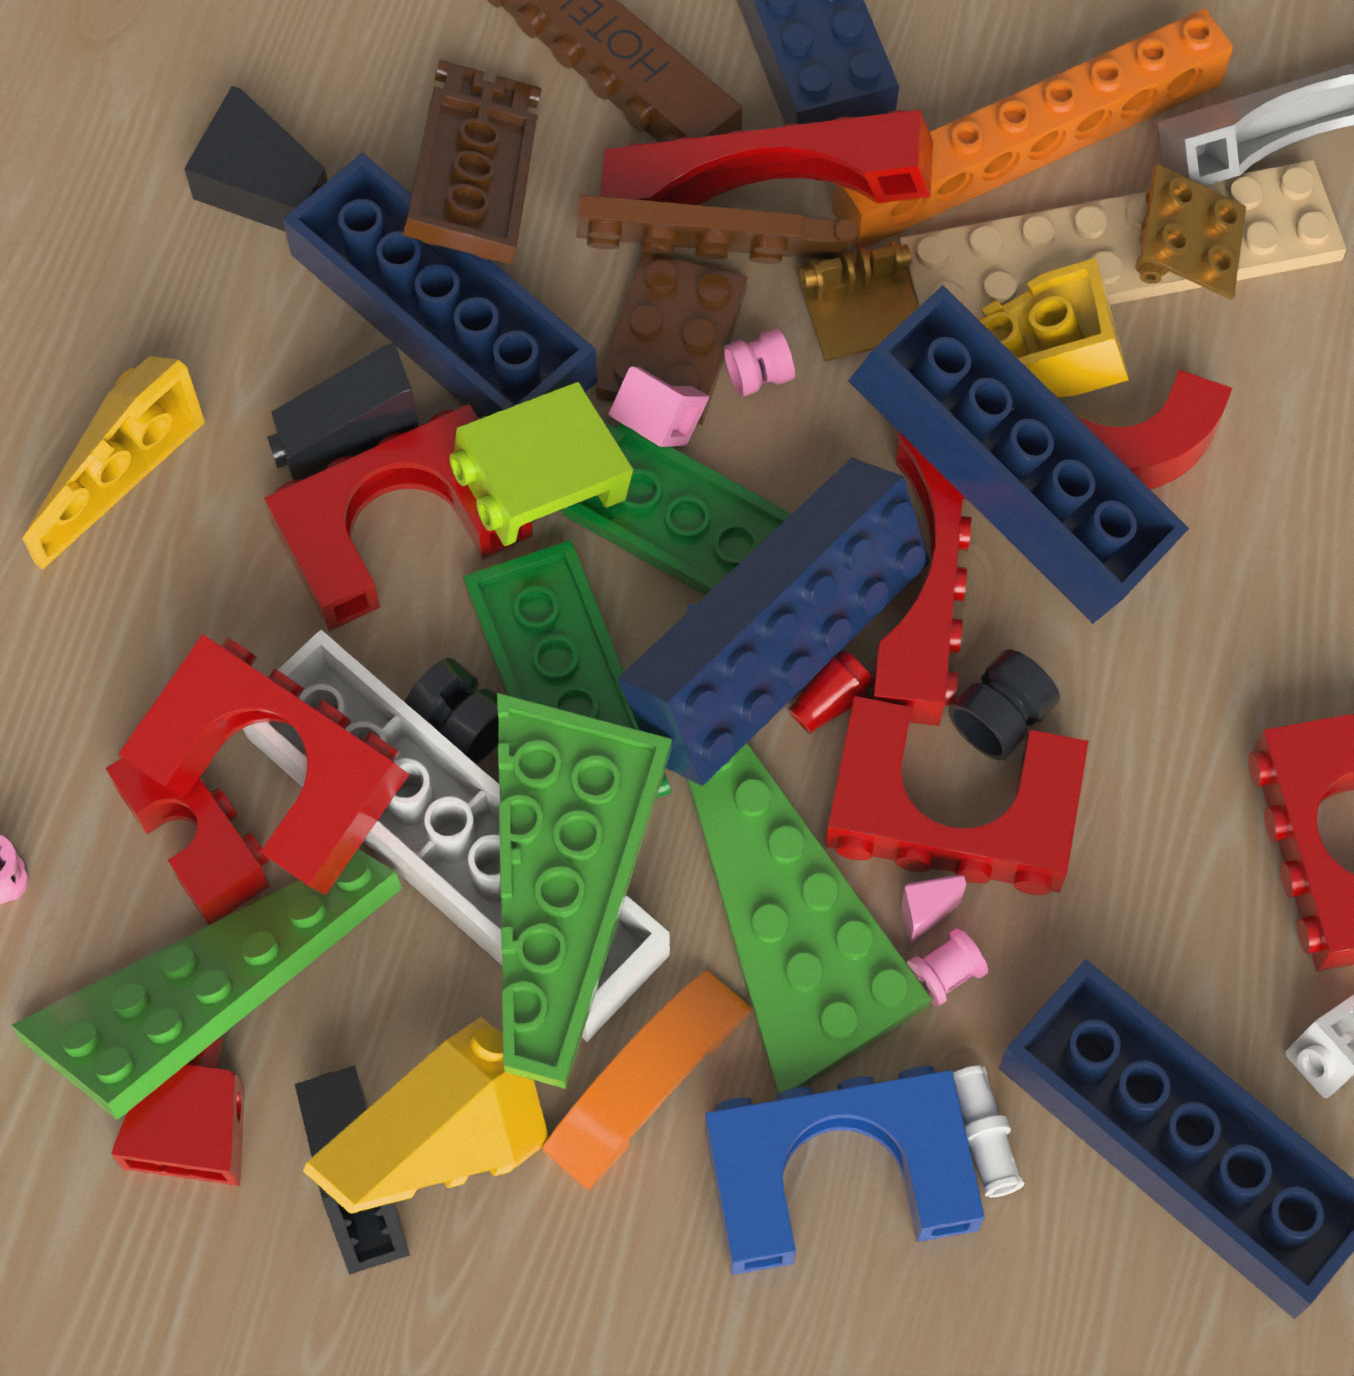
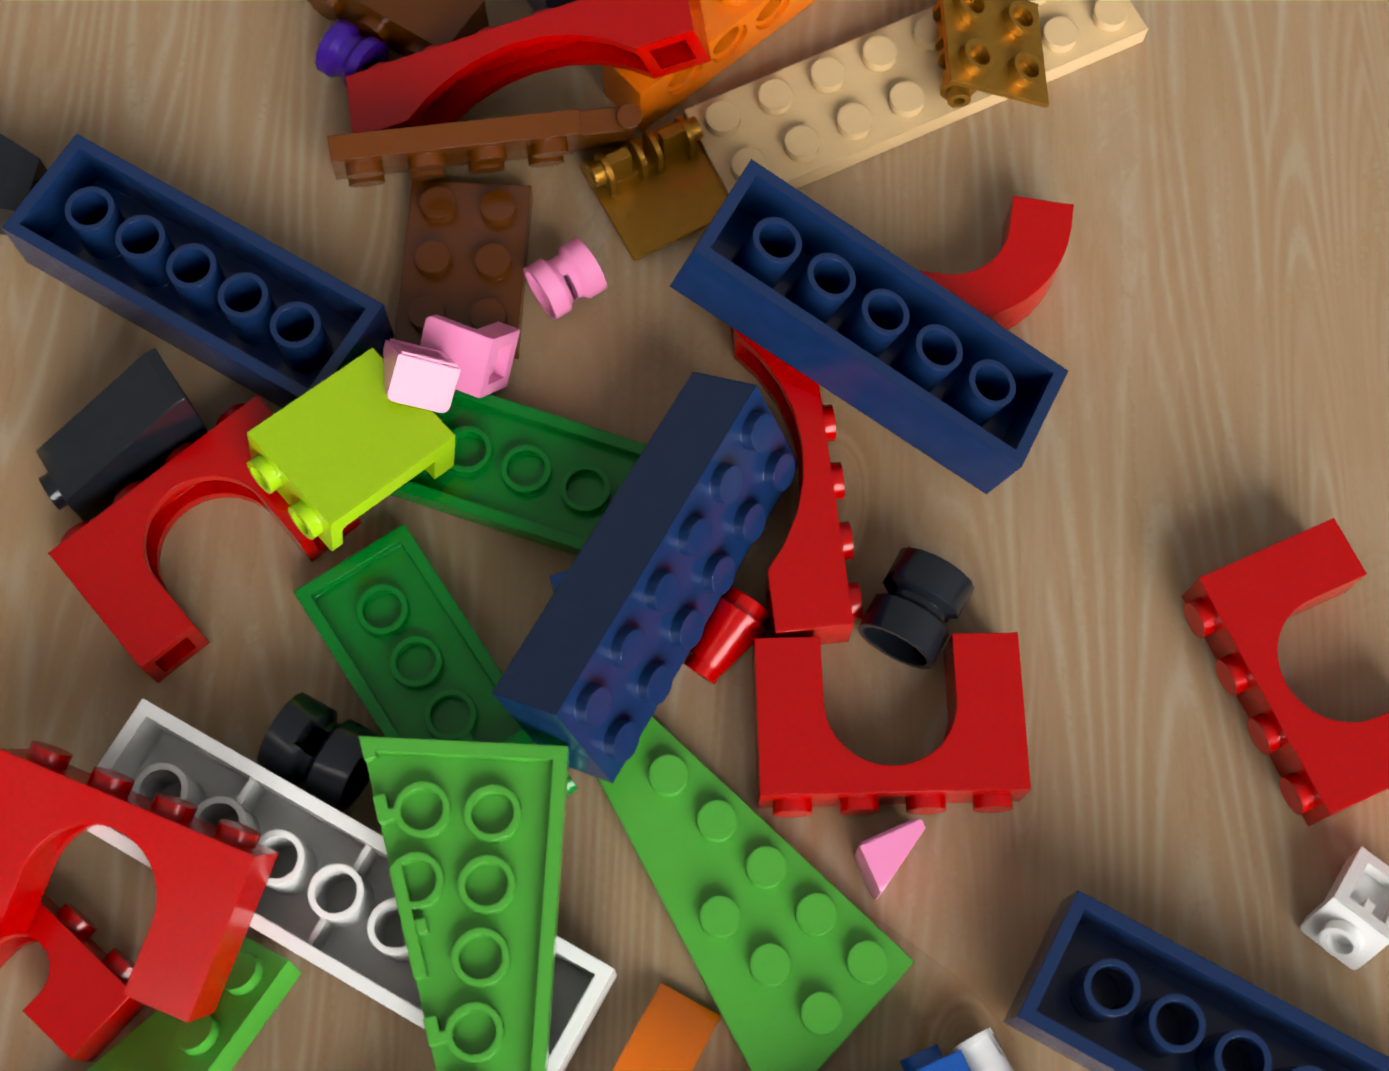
camera: 15 degrees left, 5 degrees up
(473, 164) = (203, 123): reddish brown hinge -> none
(610, 128) = (347, 52): none -> dark purple wheel
(613, 413) = (419, 375): none -> slope
(949, 966) = (924, 920): bright pink bush -> none
(1062, 330) = (879, 176): yellow wedge -> none

